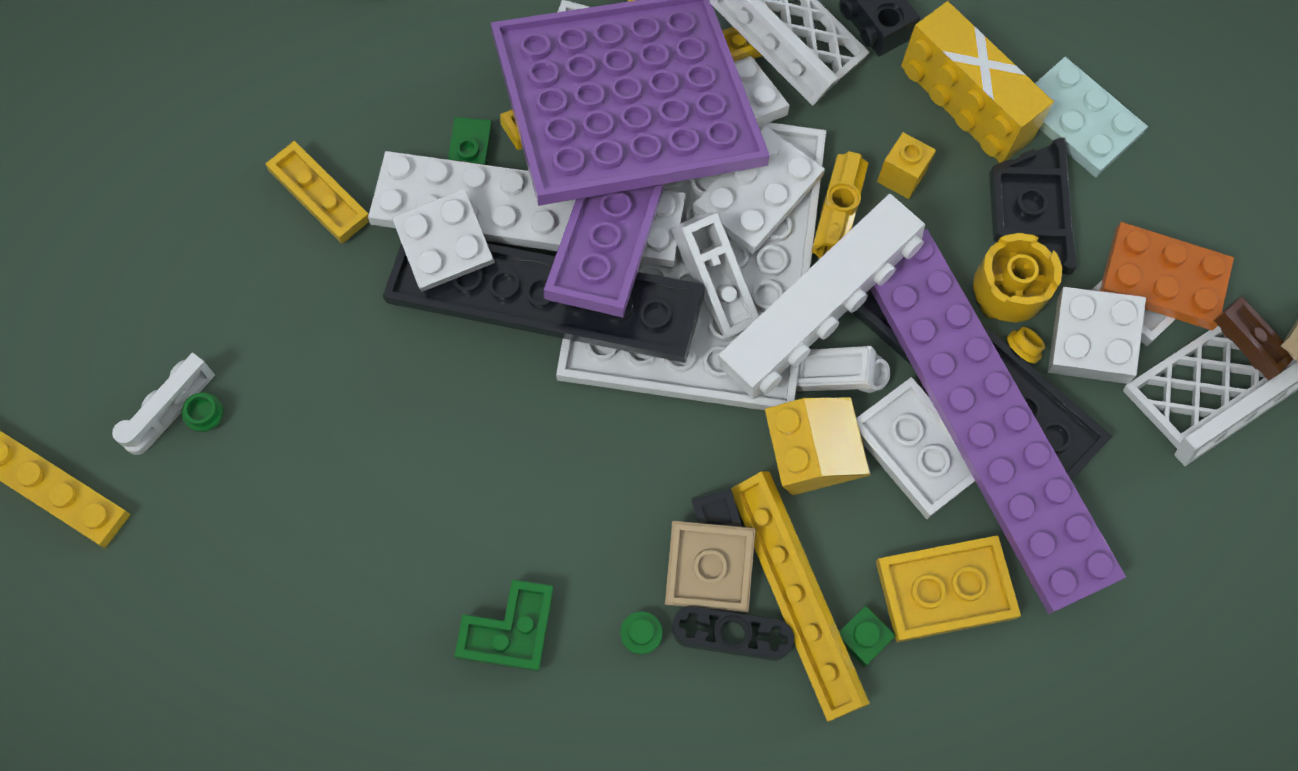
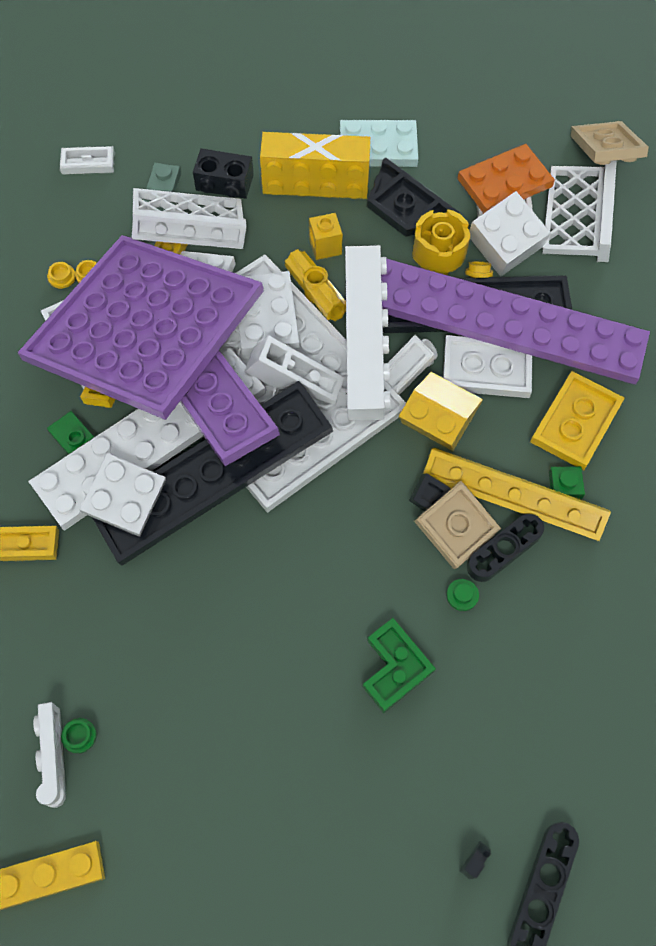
camera: 45 degrees left, 5 degrees down
(1254, 338) = (568, 170): reddish brown plate -> none

